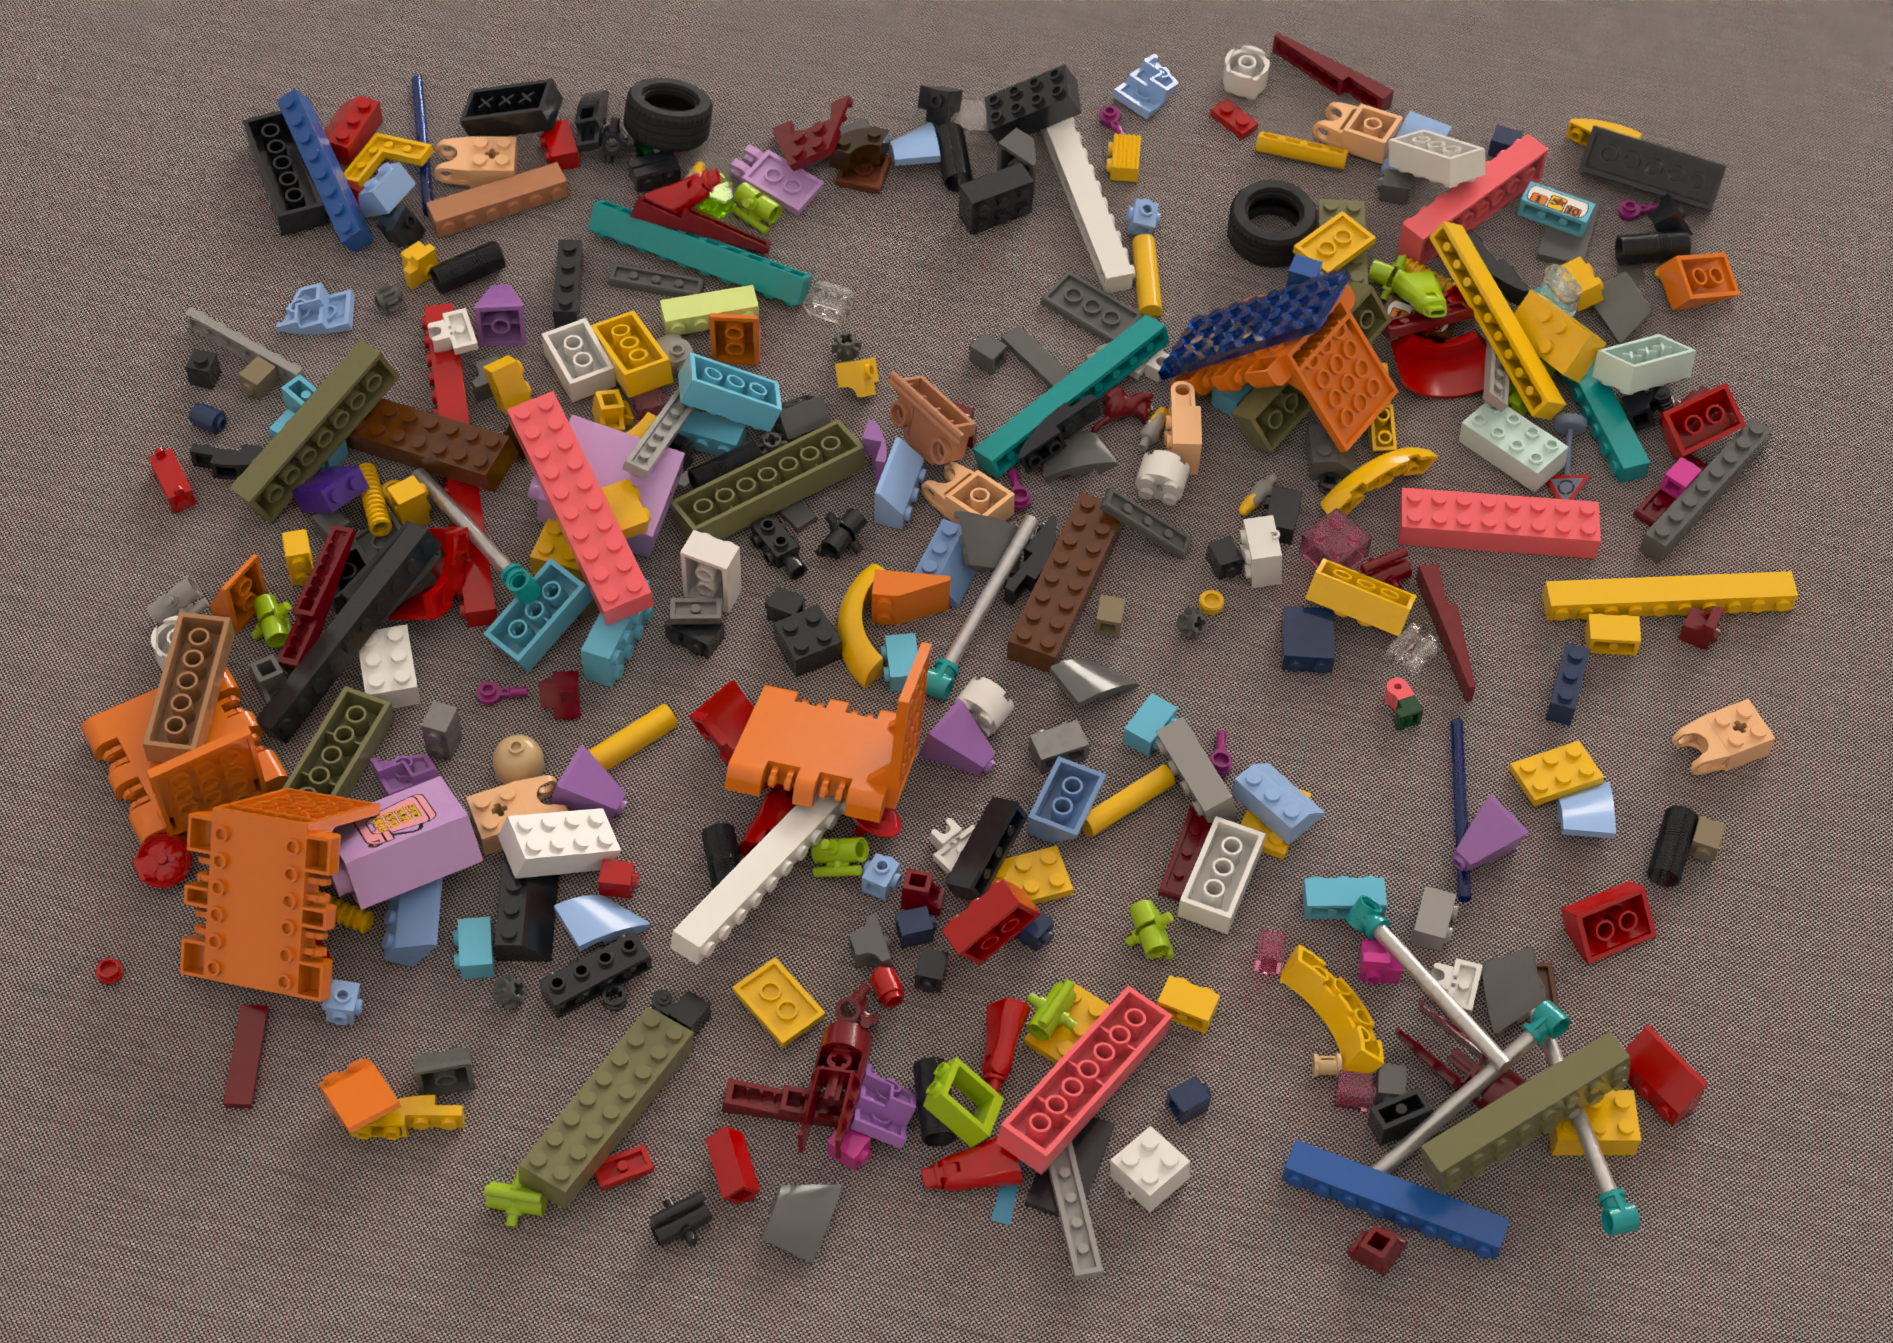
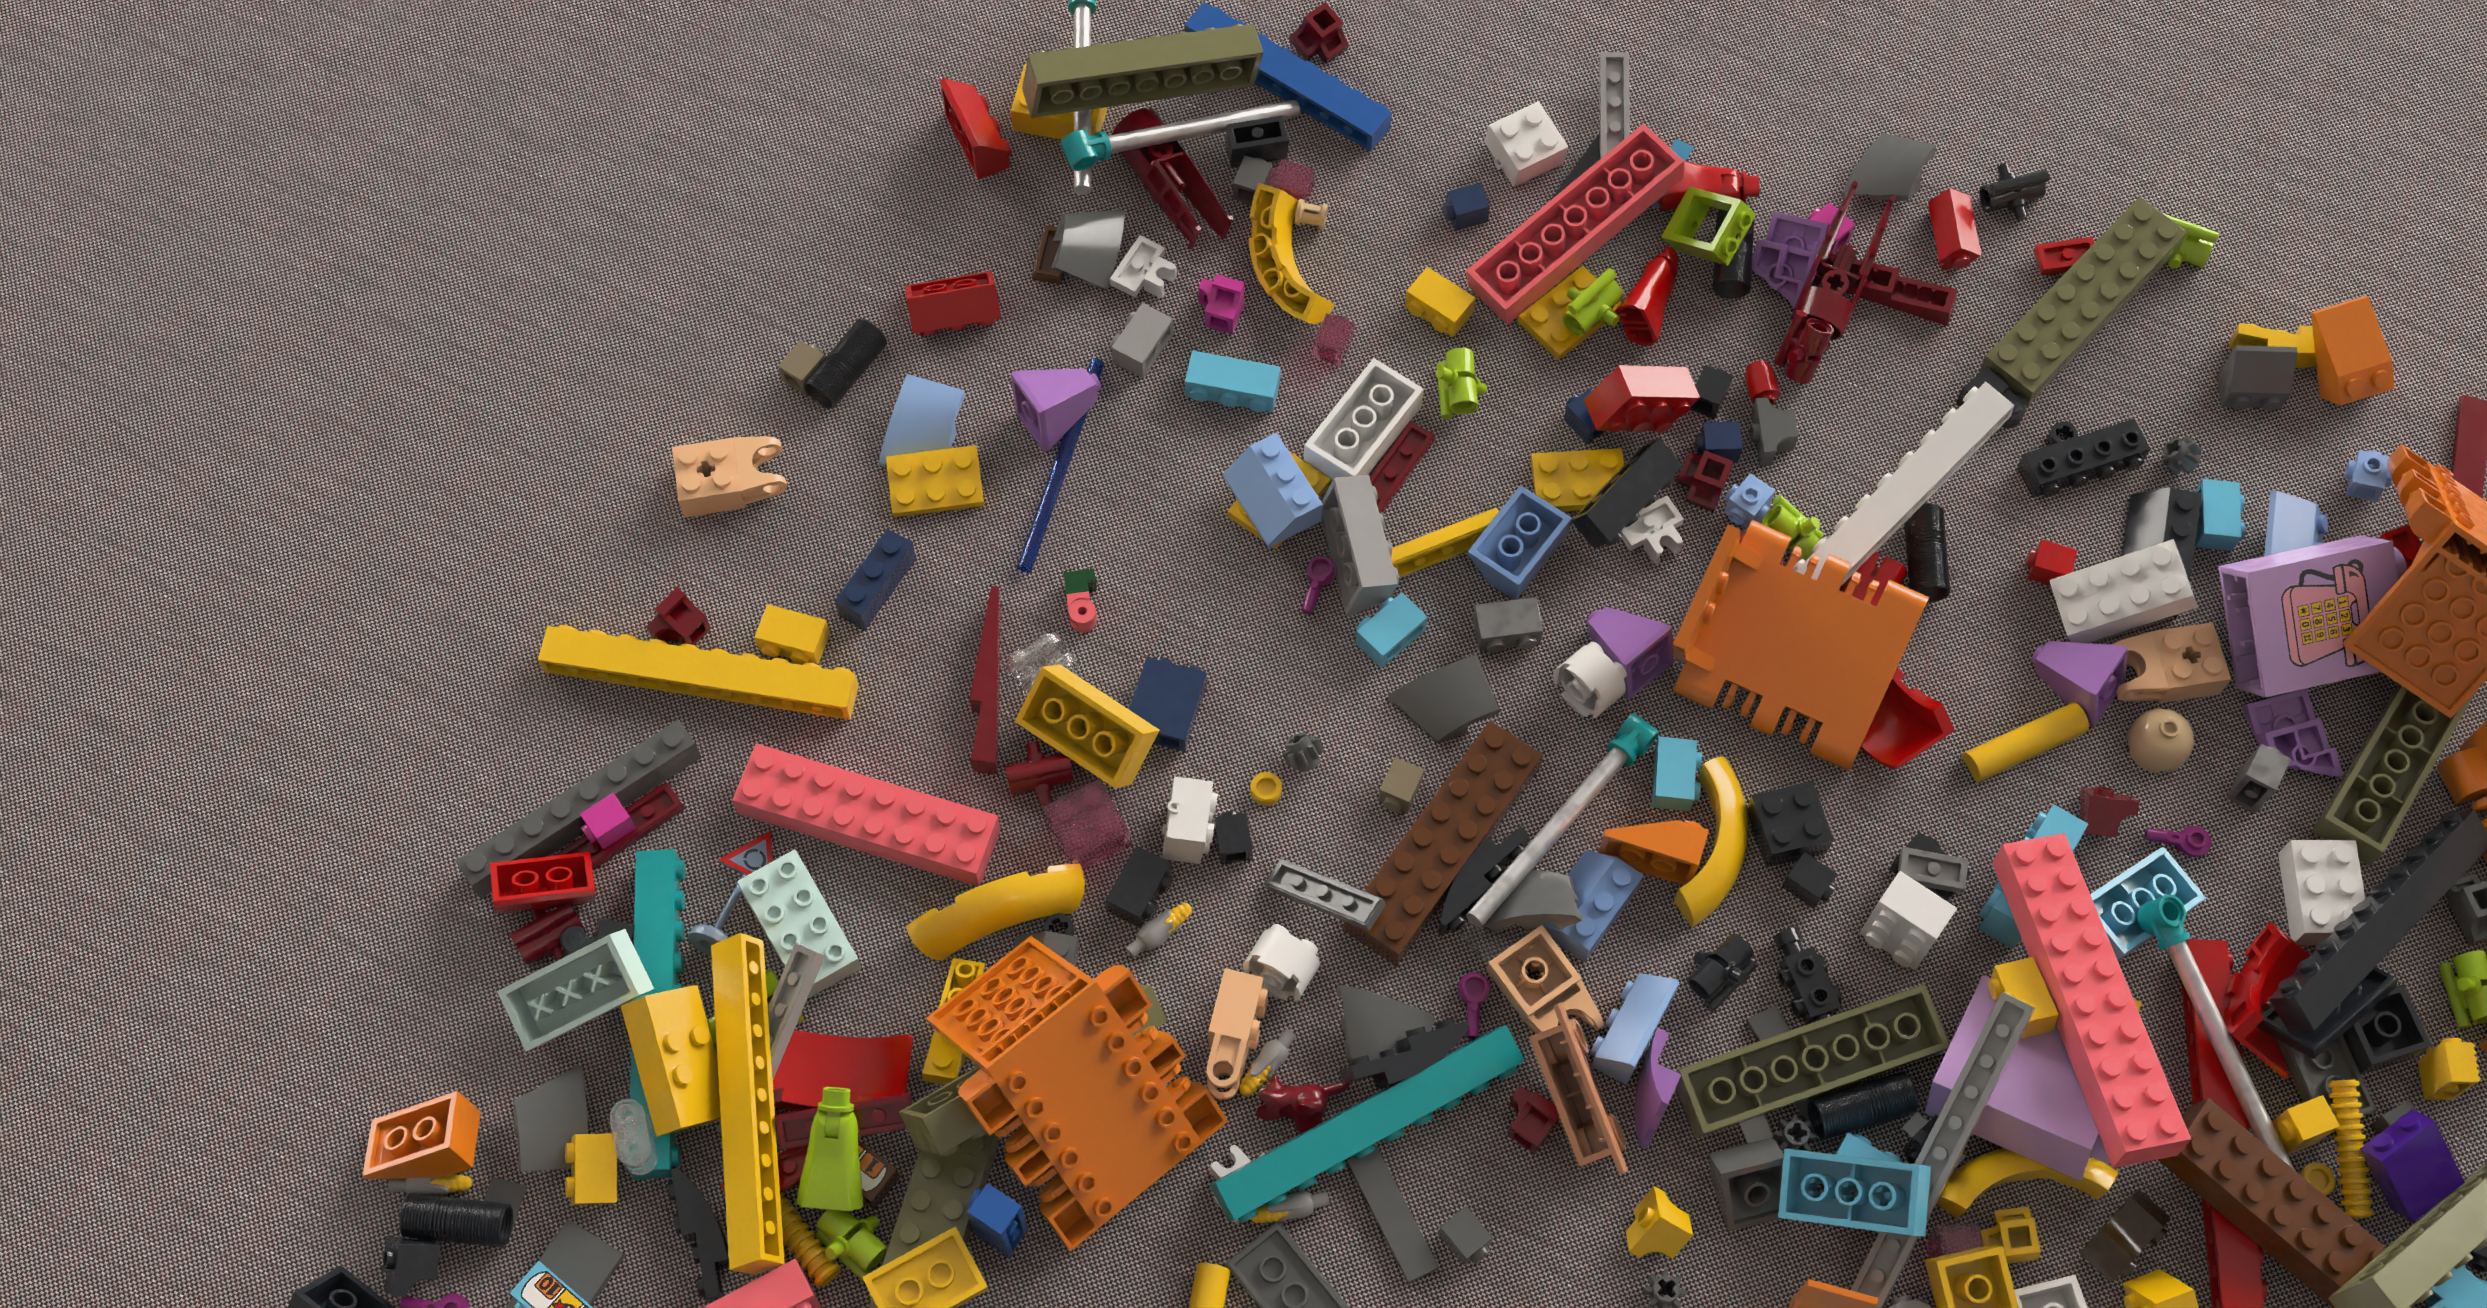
camera: 165 degrees left, 10 degrees up
(317, 597) = (2425, 986): dark red slope -> none
(597, 919) = (2077, 515): light blue slope -> none
(779, 1002) = (1882, 392): yellow plate -> none
(1255, 324) = (1101, 1111): clear blue plate -> none
(1366, 918) = (1215, 320): flat silver piece -> none

